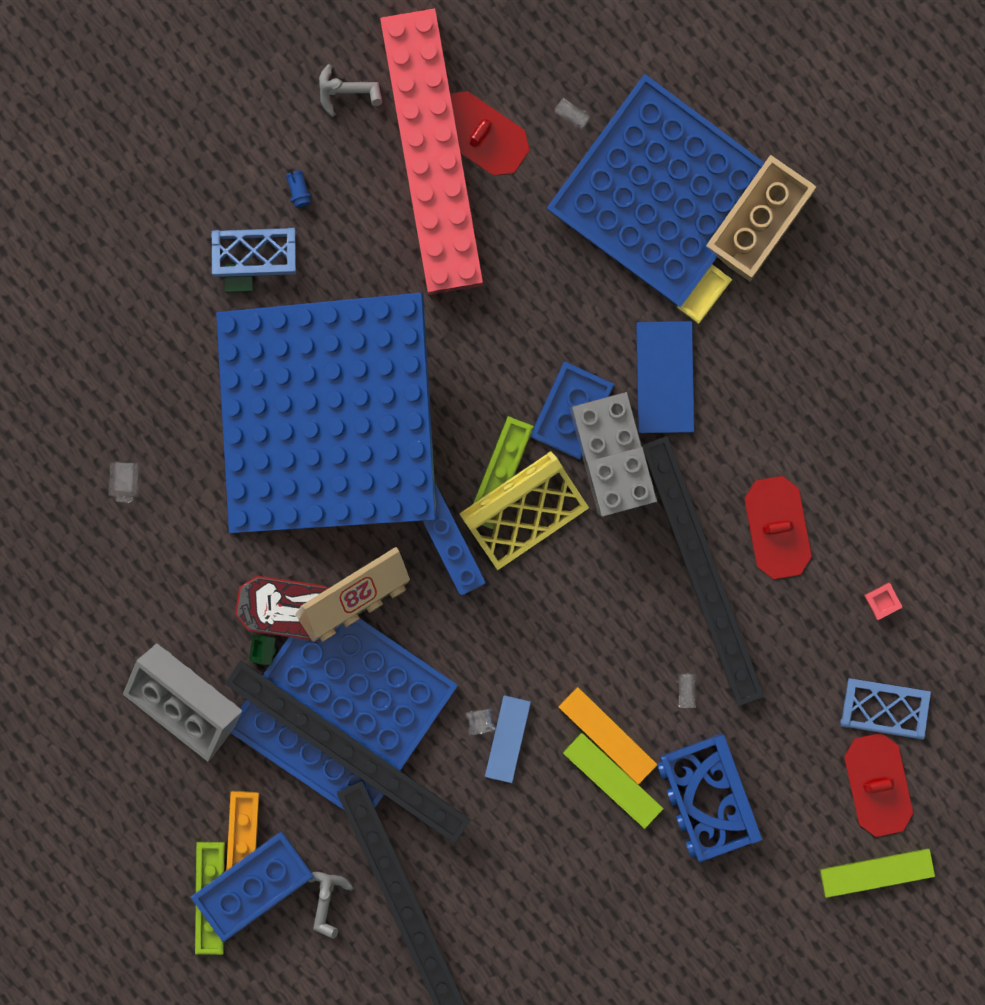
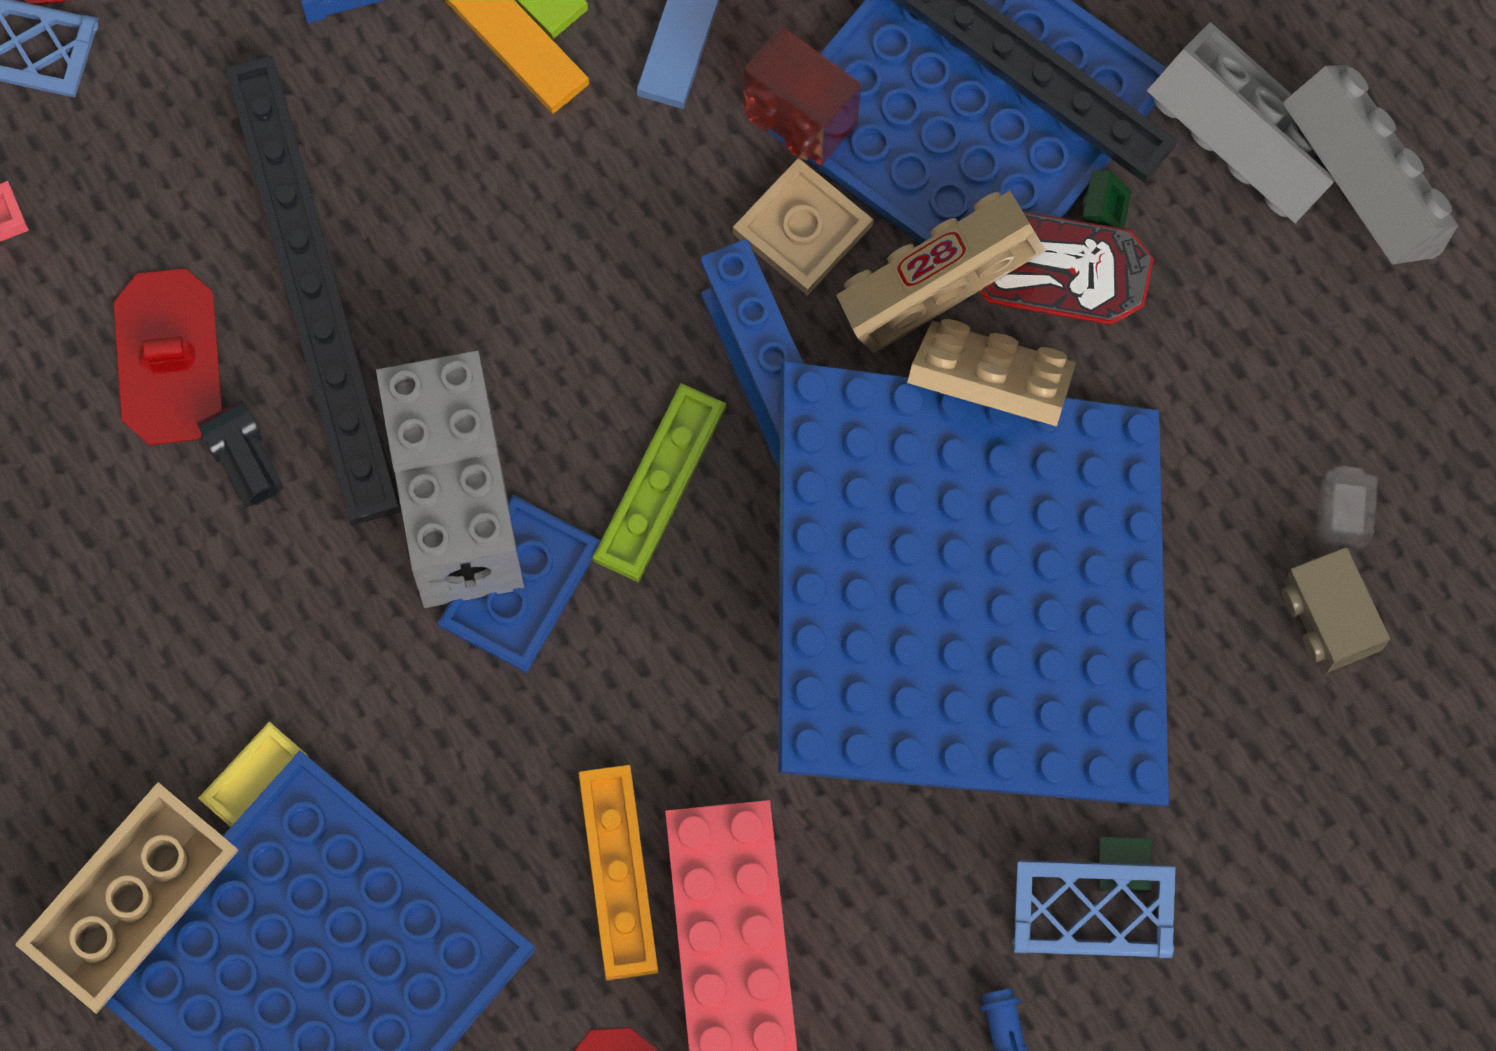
camera: 170 degrees left, 15 degrees down
(116, 673) = (1372, 165): none -> light grey slope
(130, 422) = (1334, 610): none -> dark tan brick
(320, 537) = (993, 371): none -> tan plate
(431, 625) = (803, 226): none -> tan plate
(437, 690) = (800, 97): none -> clear red brick
(480, 721) = (726, 60): clear wheel -> none
(506, 254) = (618, 872): none -> light orange plate
(512, 491) = (639, 433): light yellow fence -> none
(665, 377) = (342, 631): blue tile -> none
(686, 690) = (359, 103): clear pin -> none
(733, 475) = (237, 445): none -> black piece

